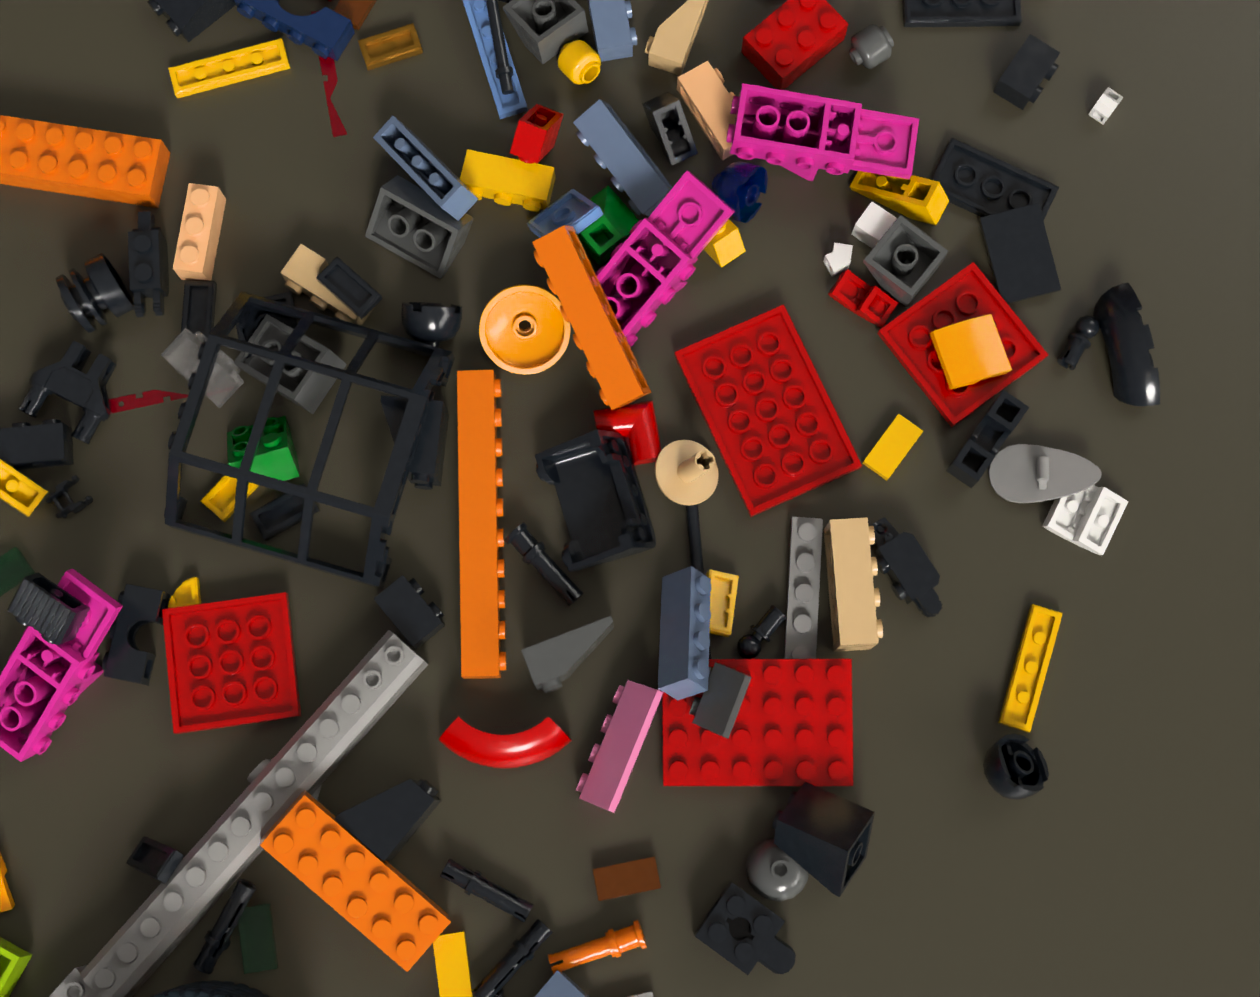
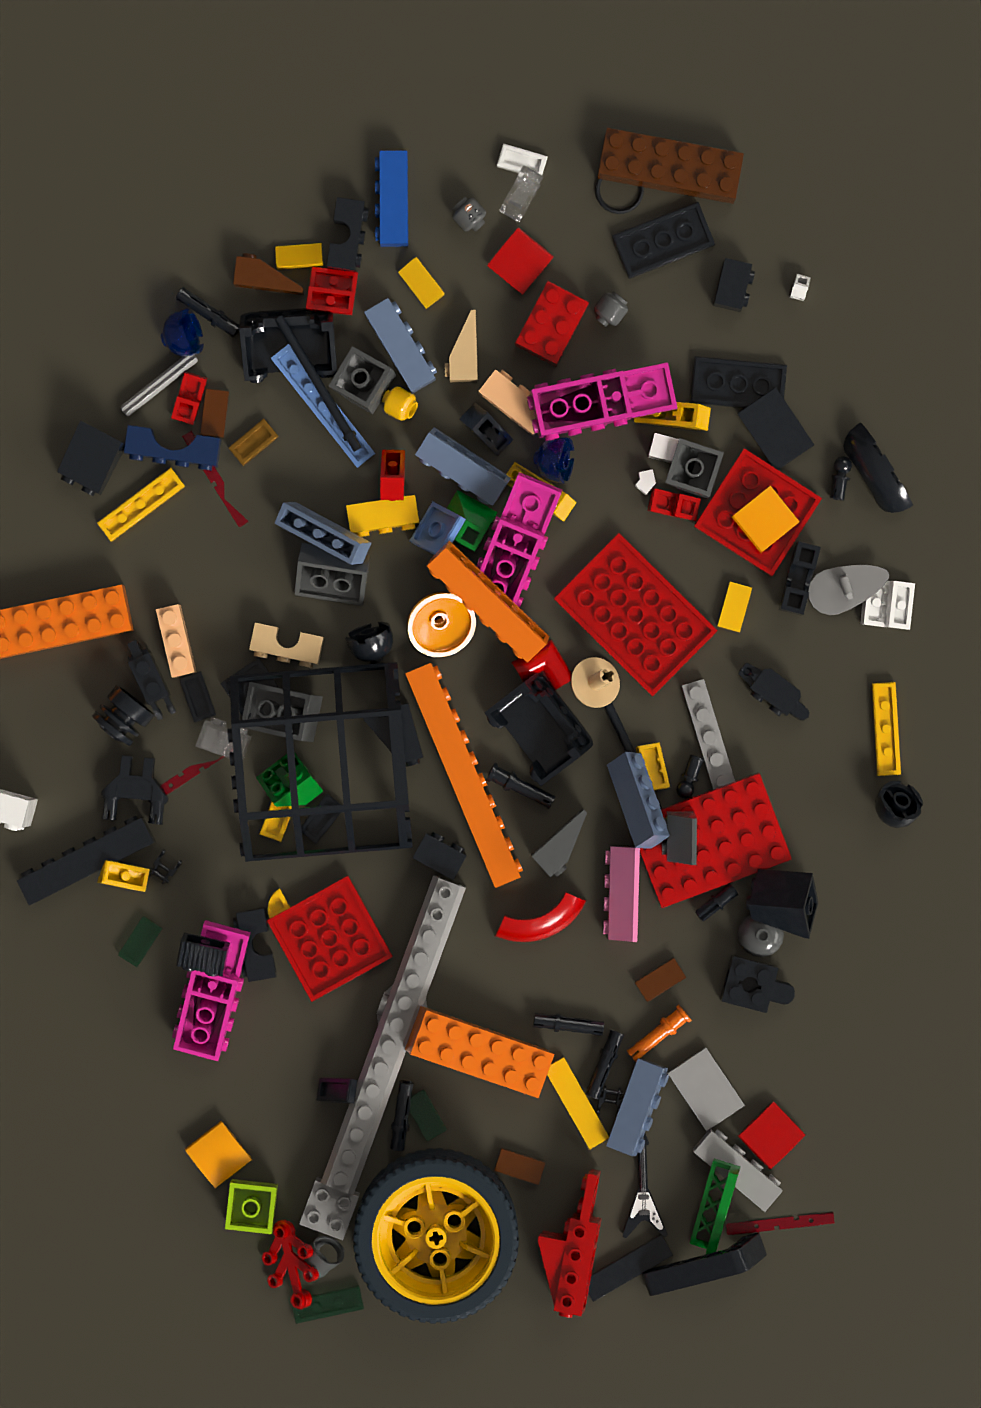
camera: 20 degrees left, 10 degrees up
(349, 288) = (304, 643): black tile -> none
(391, 817) = (485, 1001): black slope -> none
(736, 805) = (716, 902): none -> black axle
(851, 584) = (740, 721): tan brick -> none

